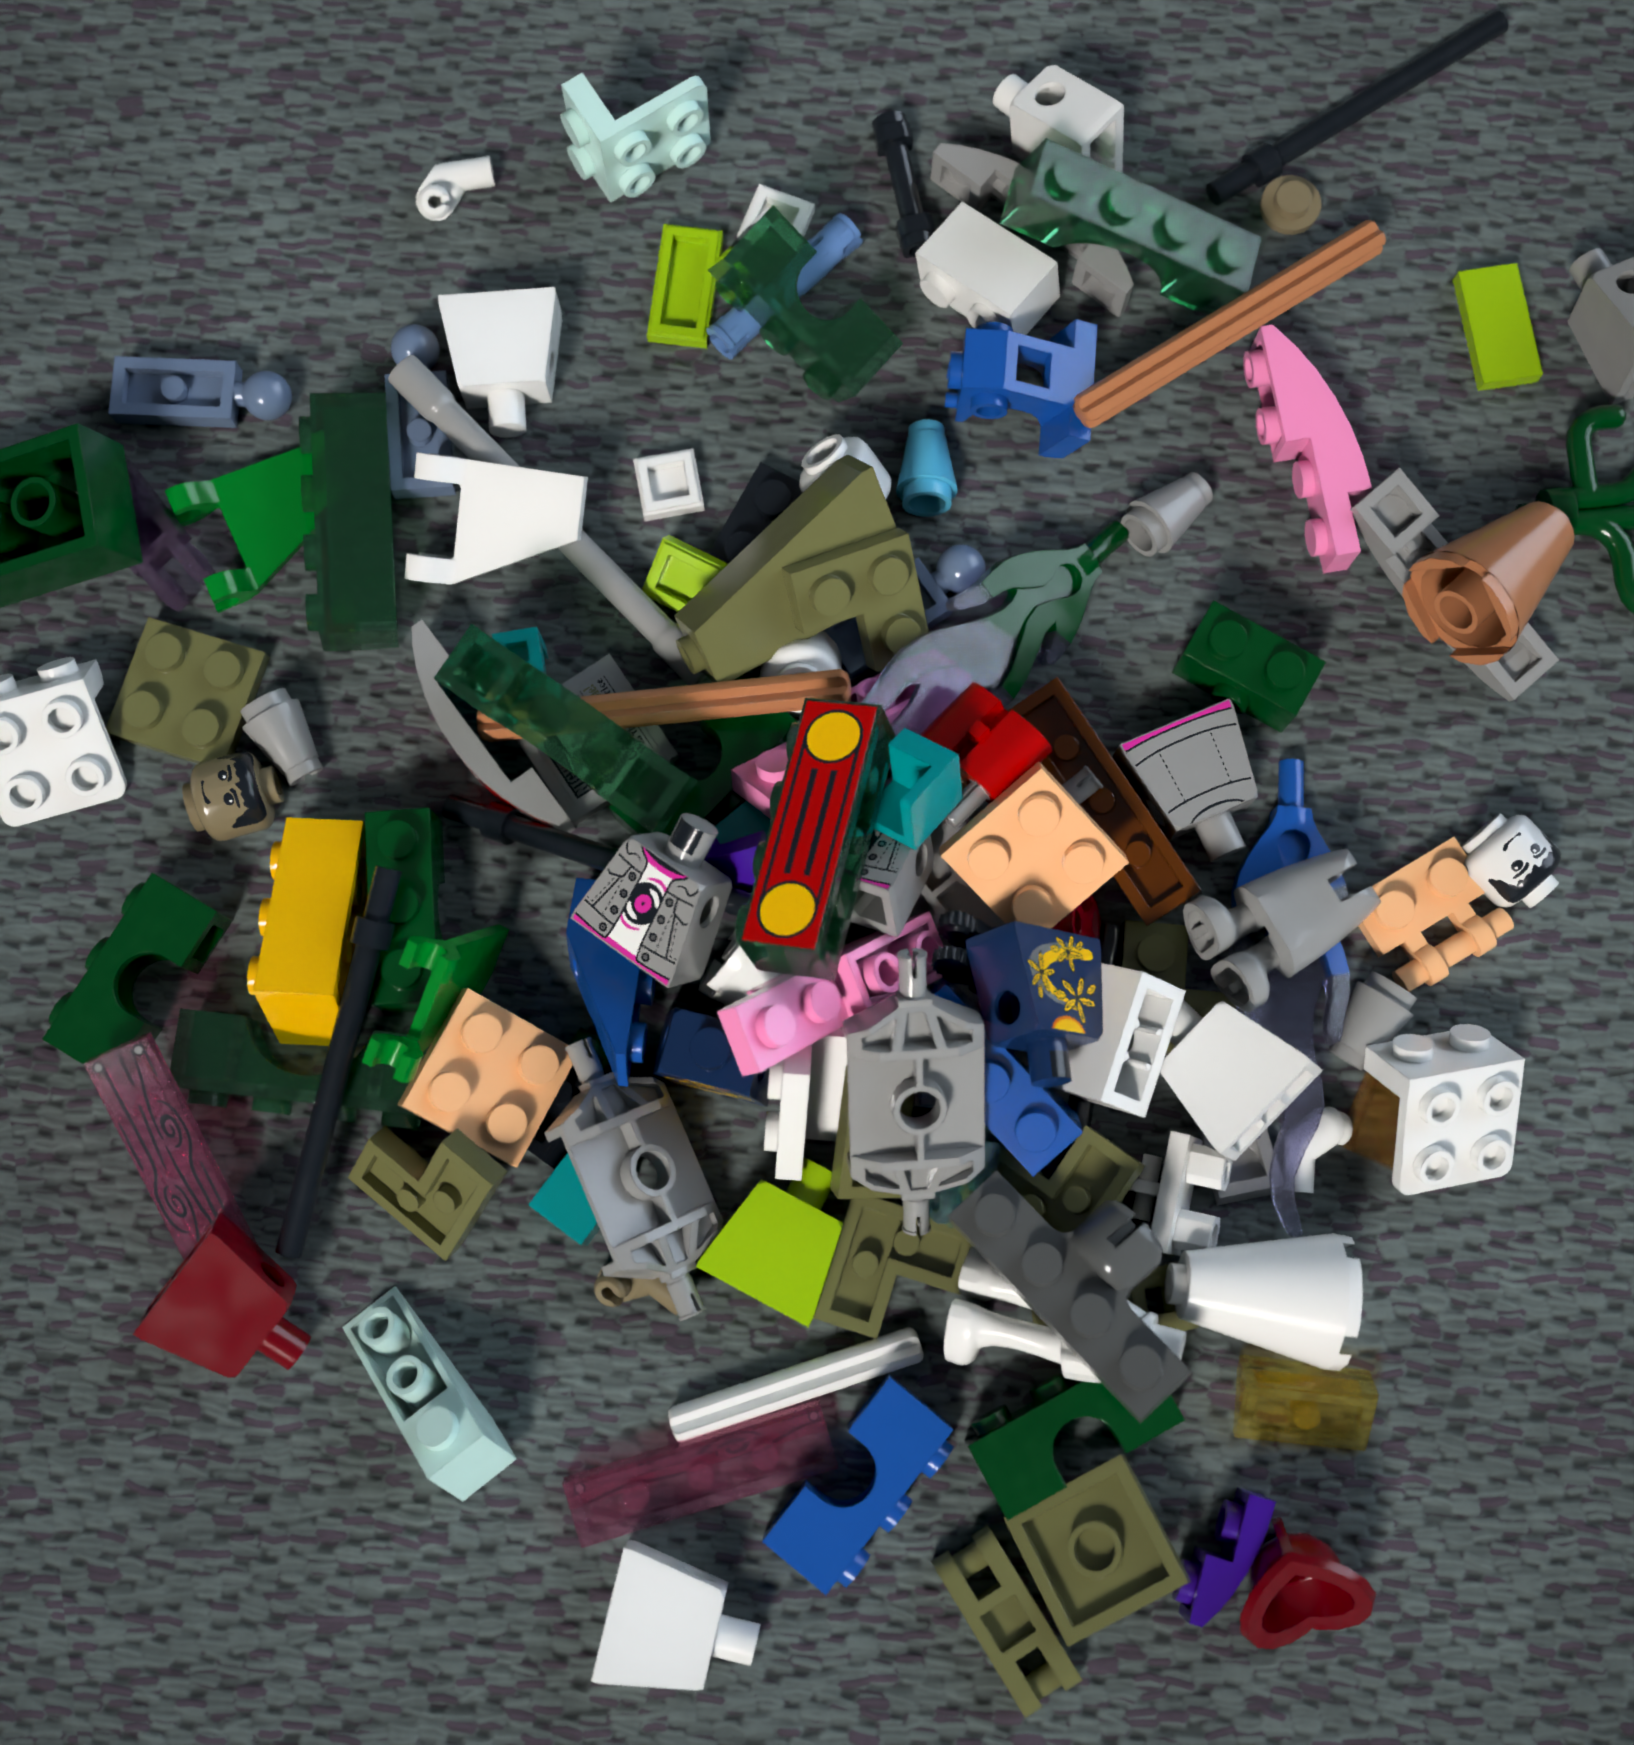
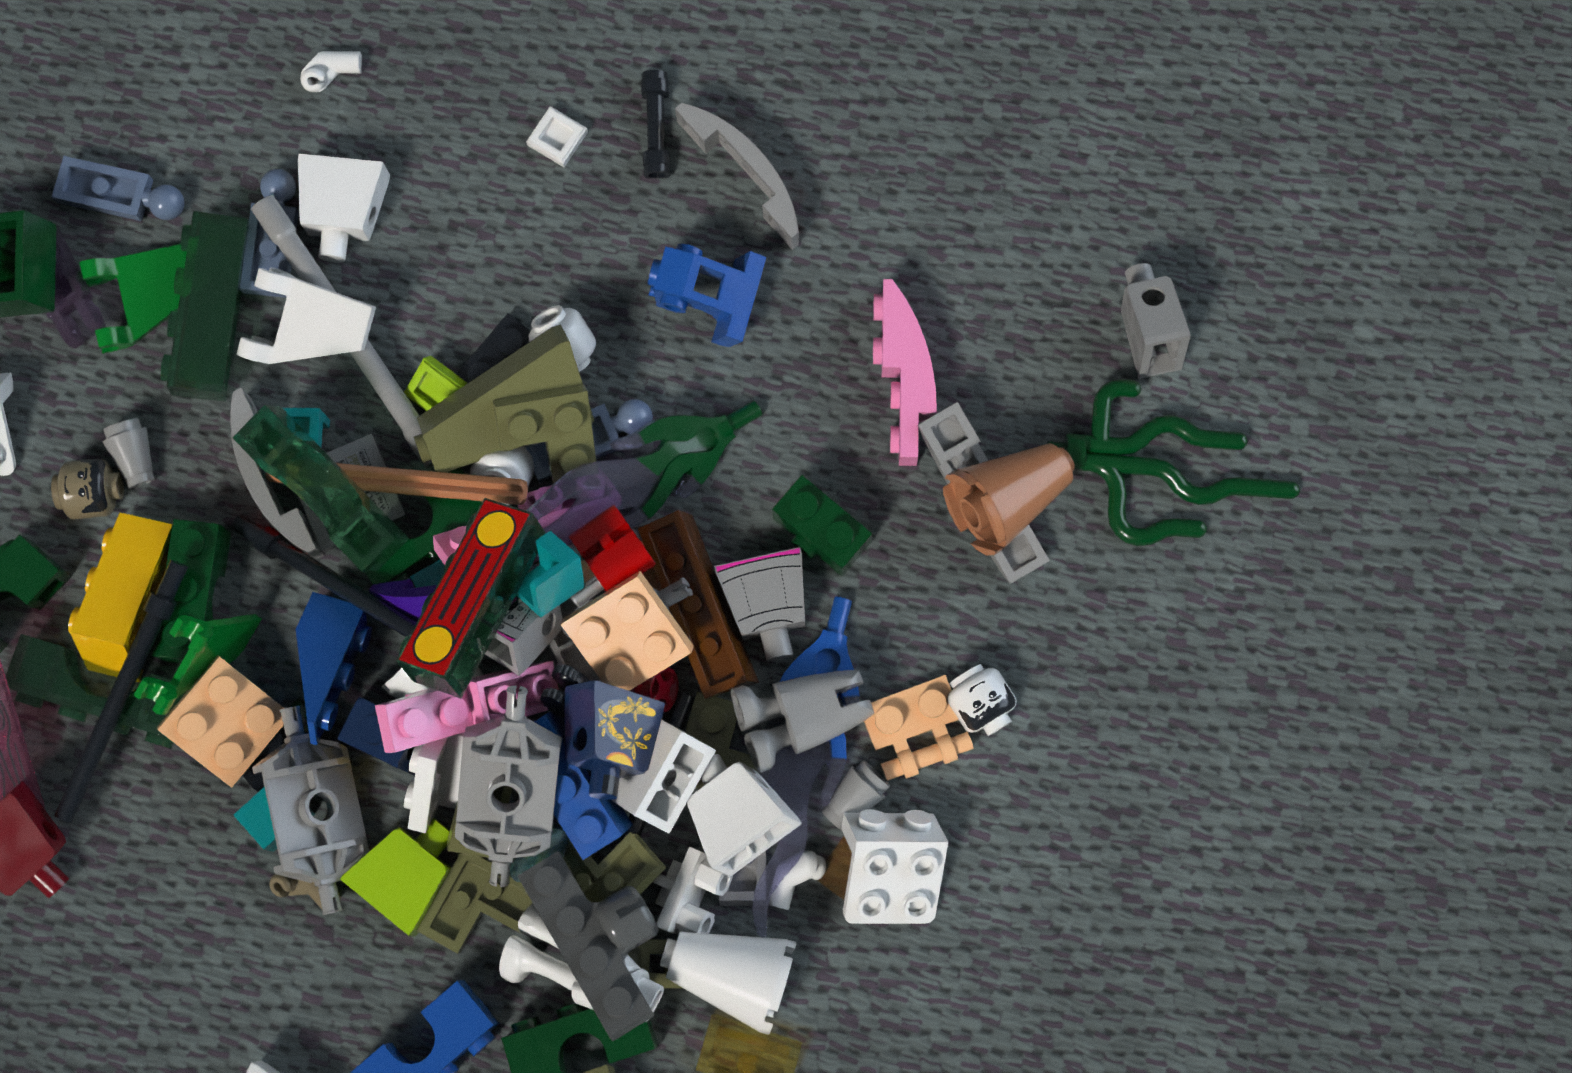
camera: 15 degrees right, 0 degrees up
(186, 693) = (69, 408): olive plate -> none
(428, 1397) = (140, 936): light aqua slope -> none
(434, 1198) = (169, 797): olive plate -> none
(641, 144) = (468, 66): light aqua bracket -> none
(660, 901) = (359, 622): light grey torso -> none
(668, 484) = (440, 317): white tile -> none
(684, 286) = (481, 172): lime tile -> none
(699, 1473) = (318, 1023): clear pink tile -> none
(762, 276) = (529, 179): clear green arch -> none
(795, 1384) = (397, 975): white axle -> none
(832, 243) = (546, 189): medium blue pin -> none
(926, 471) = (625, 340): medium azure cone -> none
(986, 272) = (696, 205): white brick -> none
(1063, 111) = (771, 102): white torso -> none
(1074, 200) = (772, 172): clear green arch -> none
(1165, 514) = (791, 402): light grey cone -> none
(1228, 324) = (859, 274): nougat axle -> none
(1267, 160) = (922, 153): black bar -> none
(1290, 205) = (934, 188): dark tan plate -> none
(1497, 326) = (1066, 305): lime tile -> none

